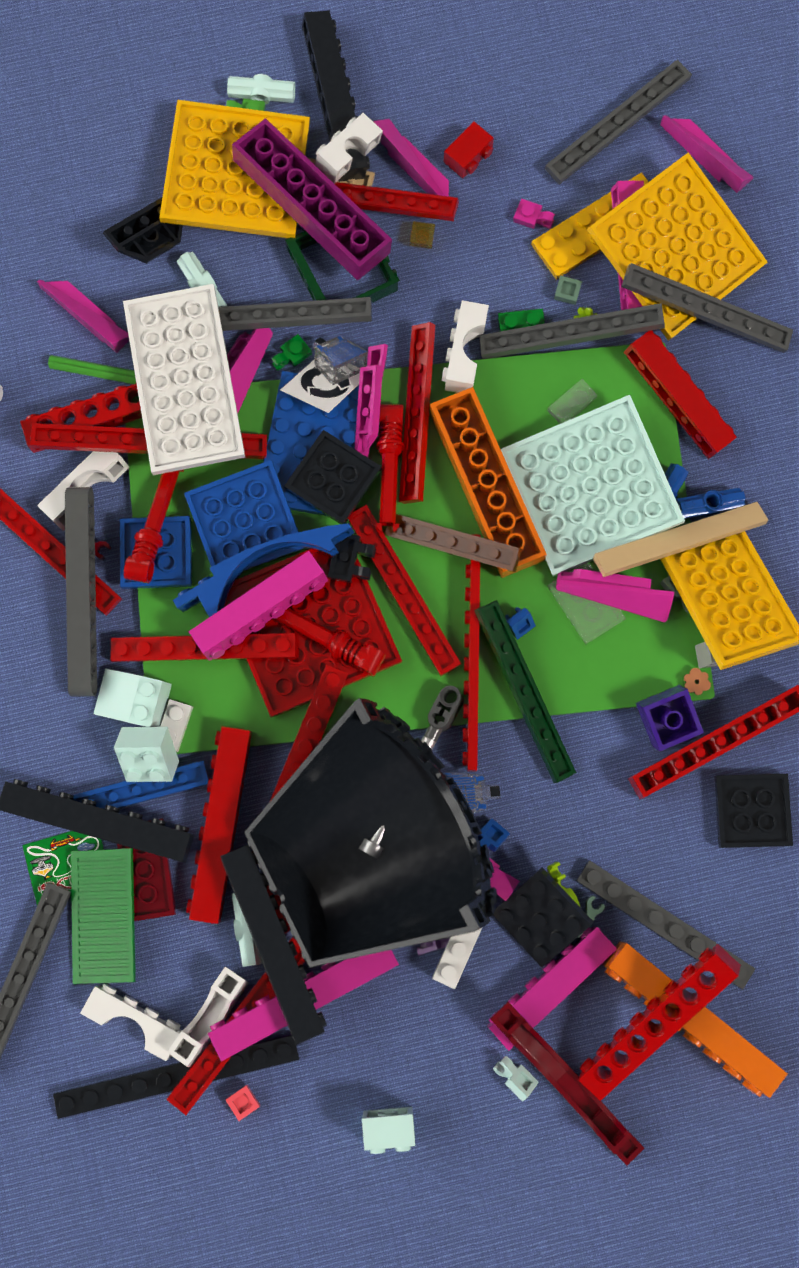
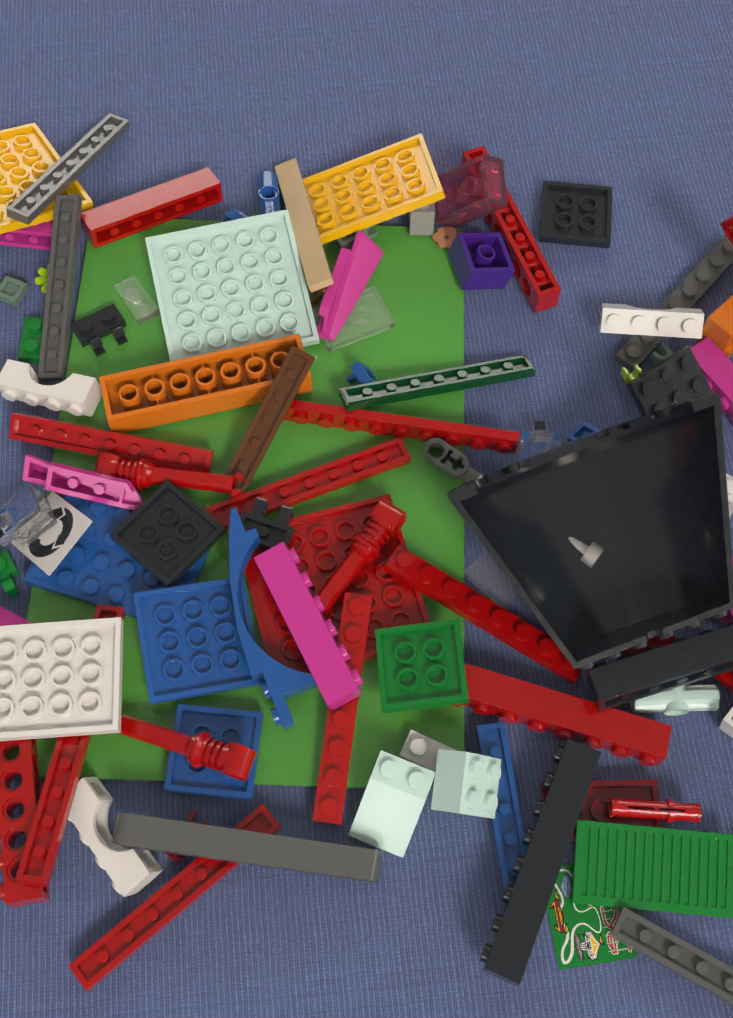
camera: 85 degrees left, 15 degrees down
(146, 912) = (687, 812): none -> red pin
(238, 705) = (421, 666): none -> green plate
(540, 374) = (98, 325): none -> black plate
(626, 917) = (651, 322): none -> white arch
(742, 696) = (471, 191): none -> clear pink brick

